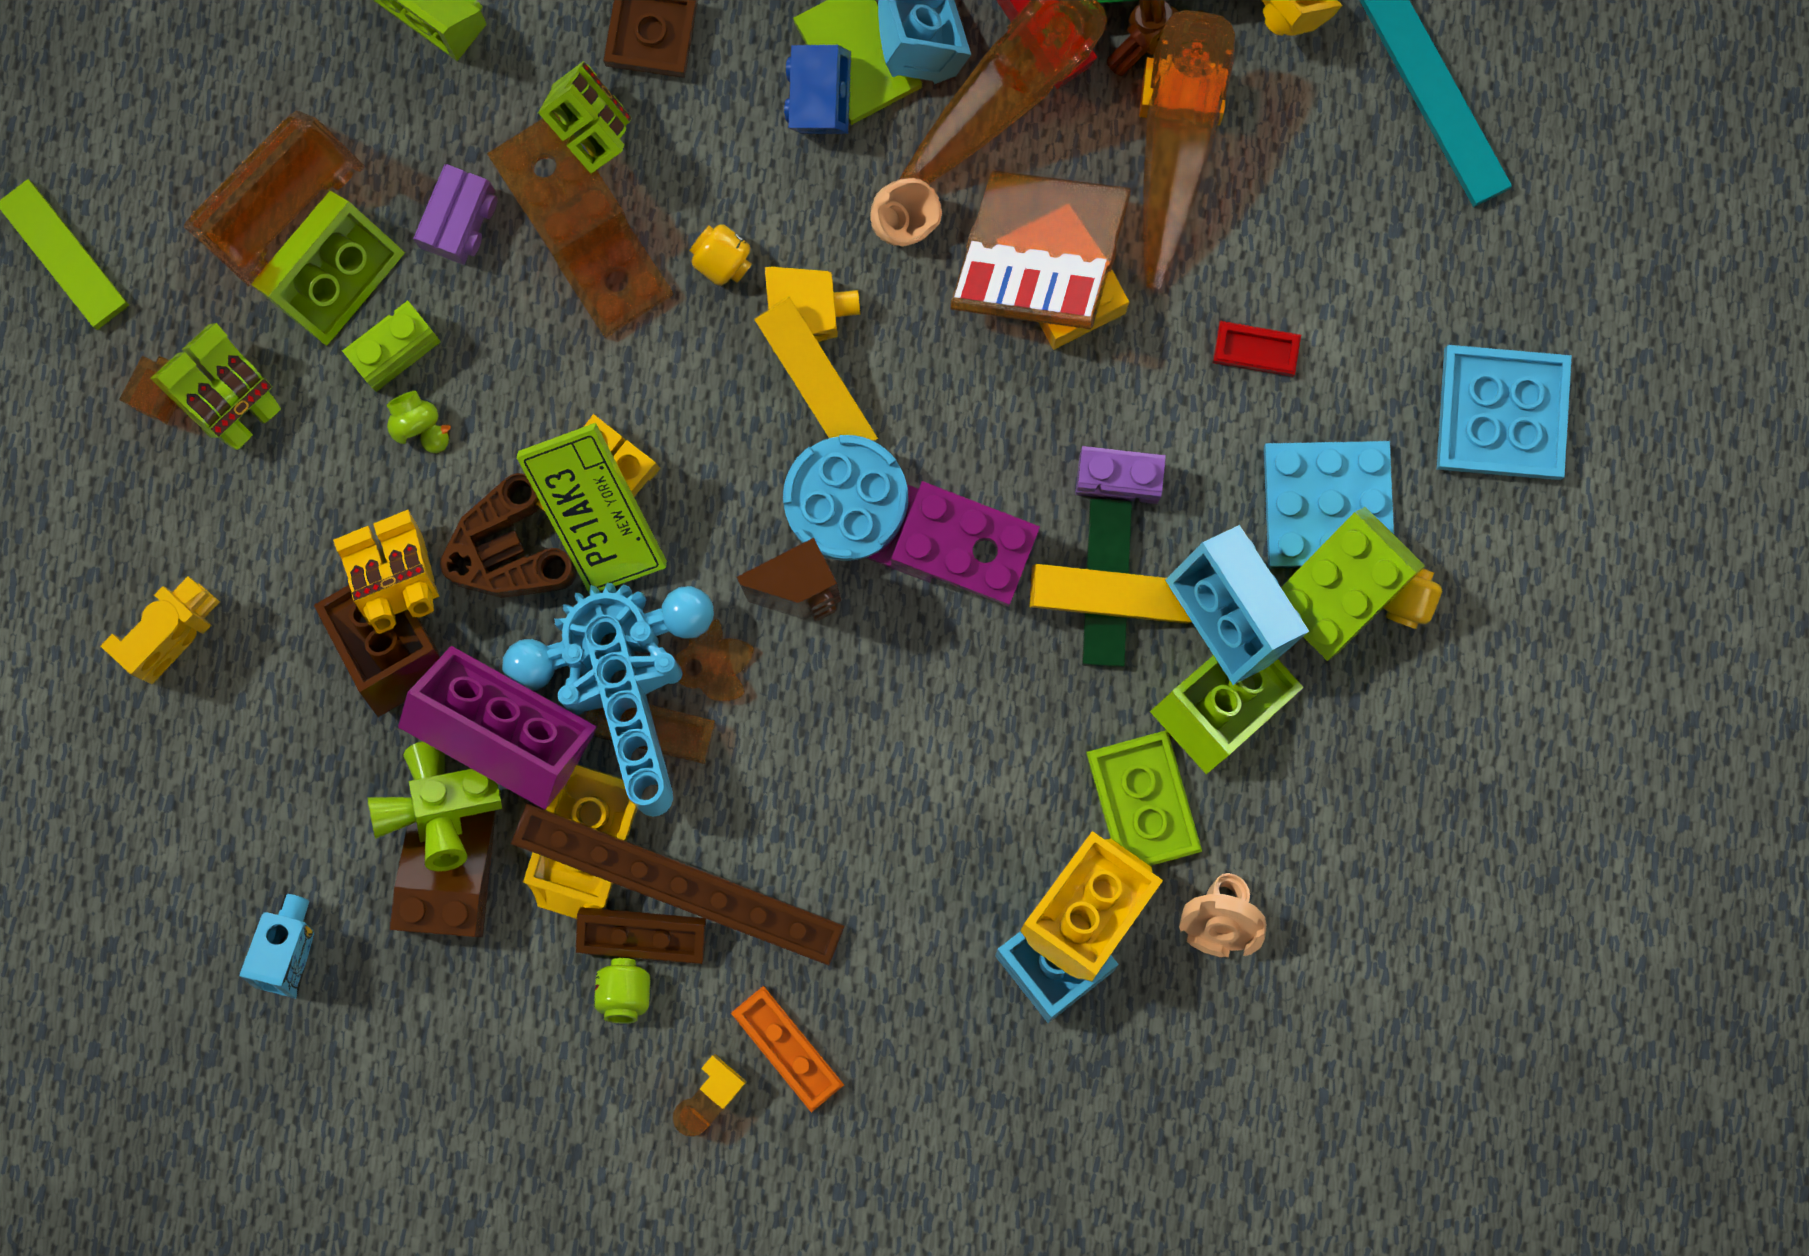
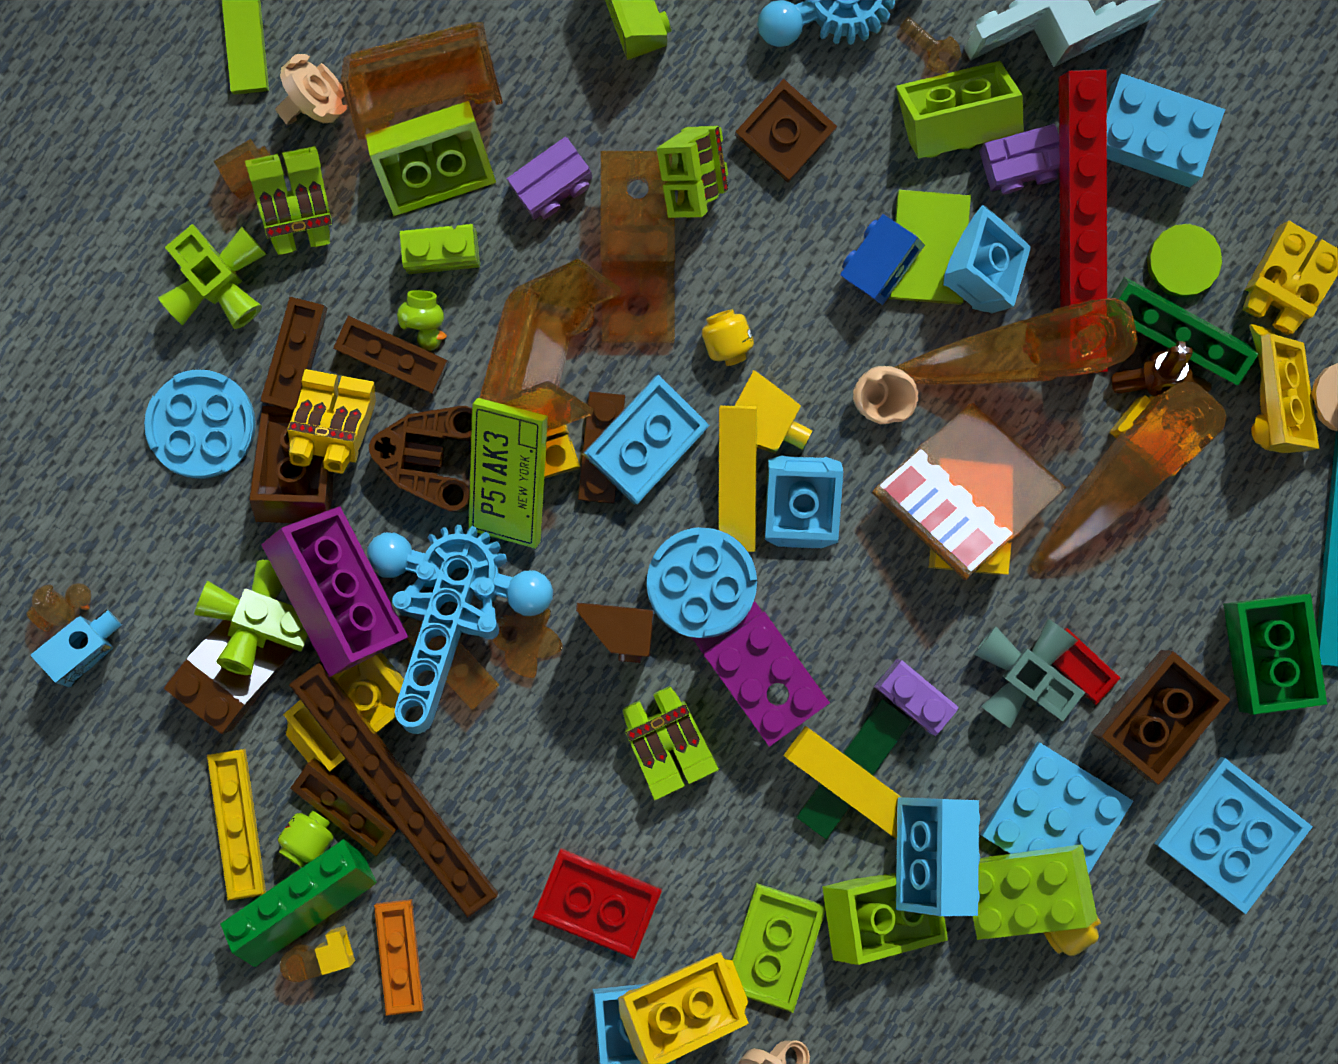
camera: 30 degrees right, 5 degrees up
(164, 630) = (137, 357): yellow hips -> none
(172, 276) = (310, 91): none -> light nougat tile
(187, 510) = (212, 276): none -> lime brick
(232, 930) = (53, 609): none -> clear orange animal
(263, 661) = (200, 424): none -> medium azure tile
(312, 534) = (293, 352): none -> reddish brown plate
(408, 476) = (391, 355): none -> reddish brown plate
(535, 362) = (536, 338): none -> clear orange windscreen
(545, 1023) = (236, 824): none -> yellow tile
(655, 1056) = (298, 903): none -> green brick
(668, 435) = (593, 483): none -> reddish brown plate
(705, 399) = (646, 439): none -> medium azure tile
(894, 363) = (803, 501): none -> medium azure slope
(899, 671) = (667, 731): none -> lime hips
(946, 870) = (597, 903): none -> red tile
(1213, 384) = (1030, 674): none -> sand green brick
(1360, 344) = (1160, 716): none -> reddish brown brick
(1427, 217) = (1275, 653): none -> green brick

